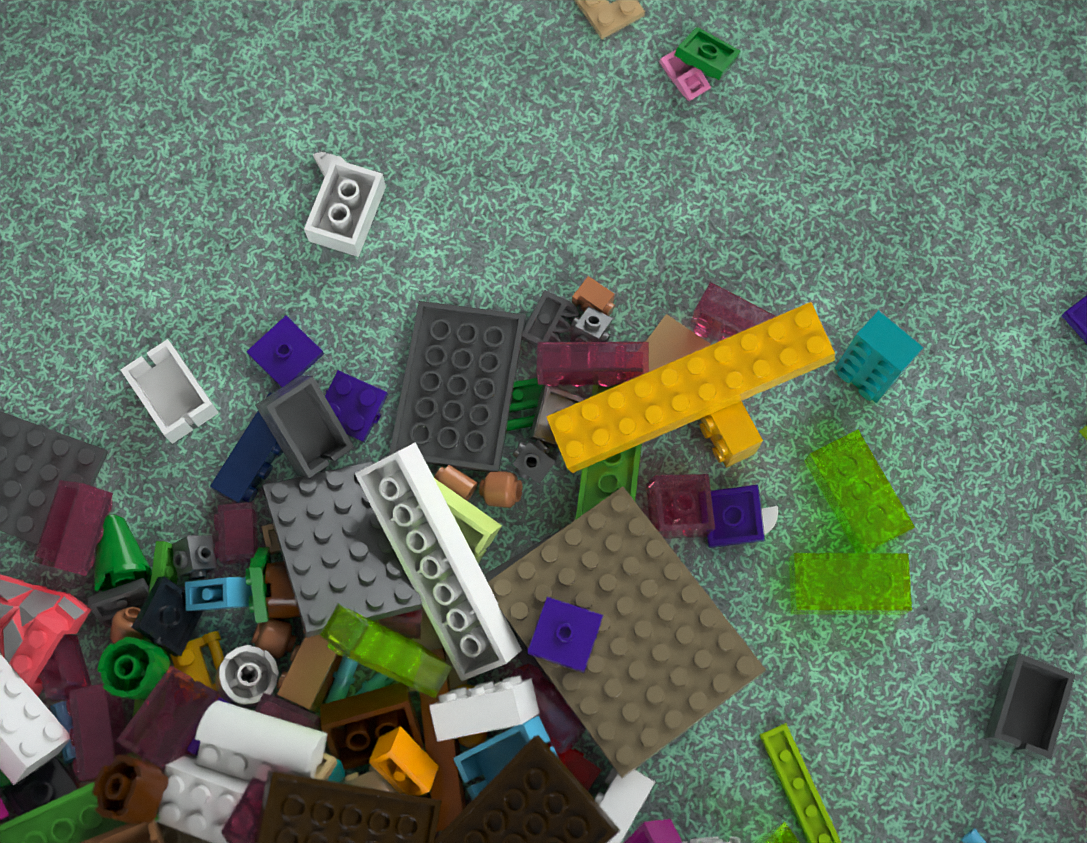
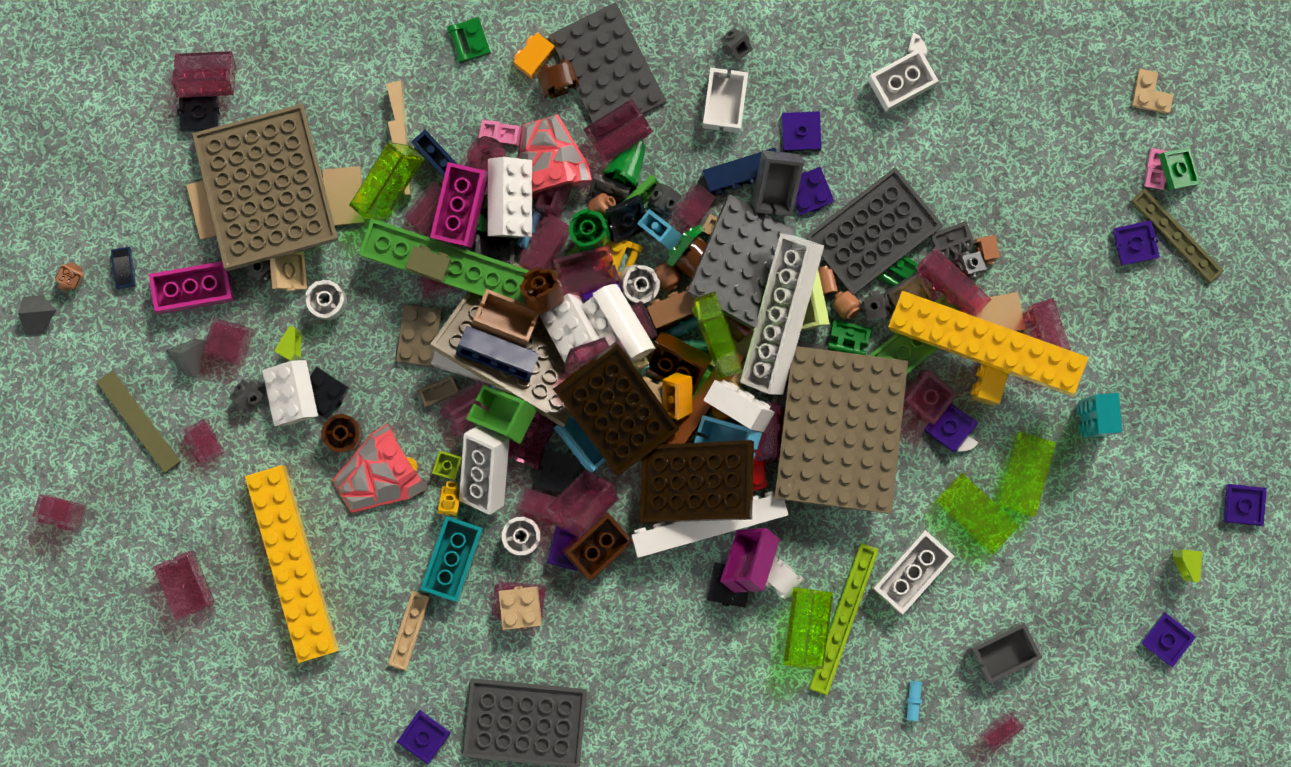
camera: 45 degrees right, 10 degrees up
(129, 323) = (736, 44): none -> dark grey brick
(532, 517) = (850, 334): none -> green plate
(565, 634) = (810, 406): dark purple plate -> none
(736, 161) = (1136, 243): none -> dark purple plate
(768, 120) = (1176, 236): none -> olive tile
(847, 713) = (912, 572): none -> white brick

